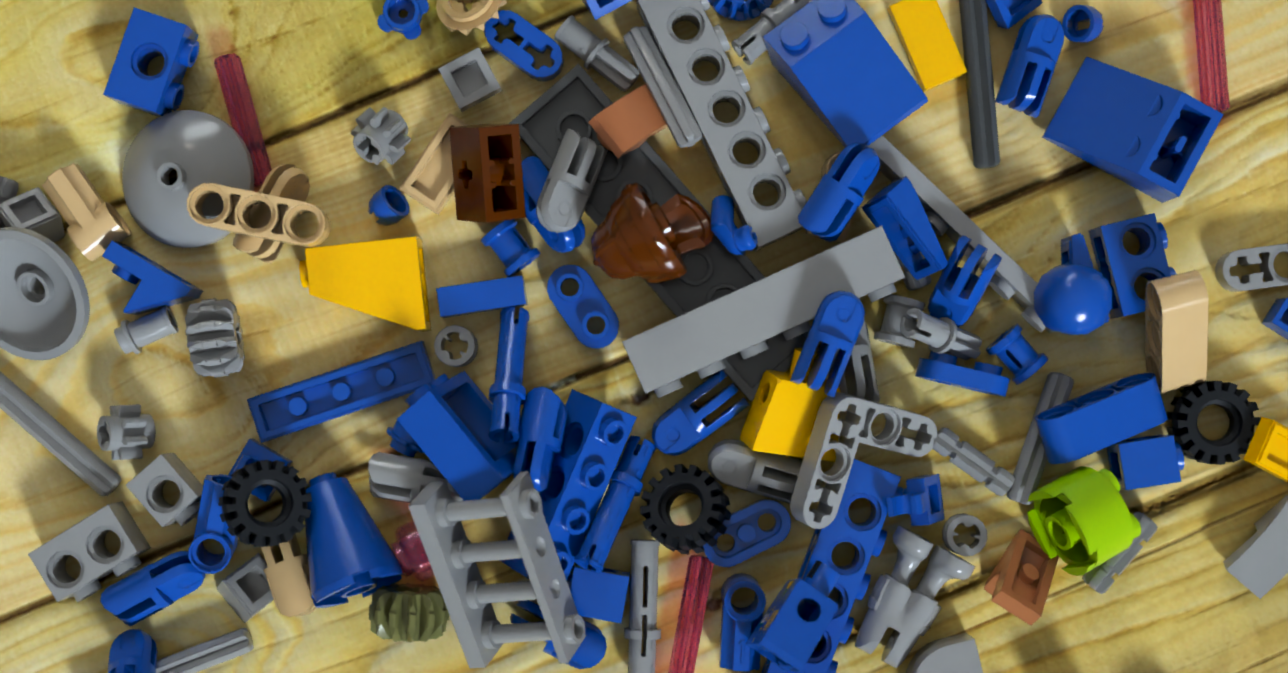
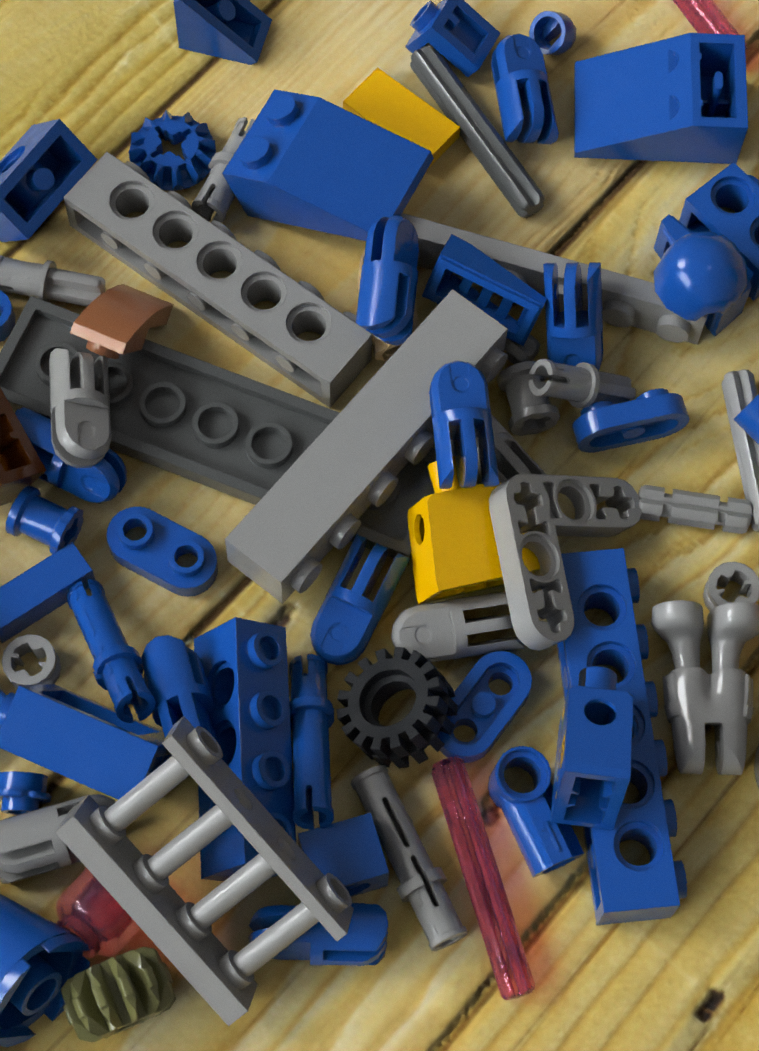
camera: 30 degrees left, 20 degrees down
(649, 237) = (196, 417): reddish brown head -> none
(662, 87) = (138, 278): light grey axle -> none
(724, 228) = (279, 379): blue arm -> none
(920, 500) = (658, 571): blue plate -> none
(1017, 354) = (665, 358): blue bush -> none

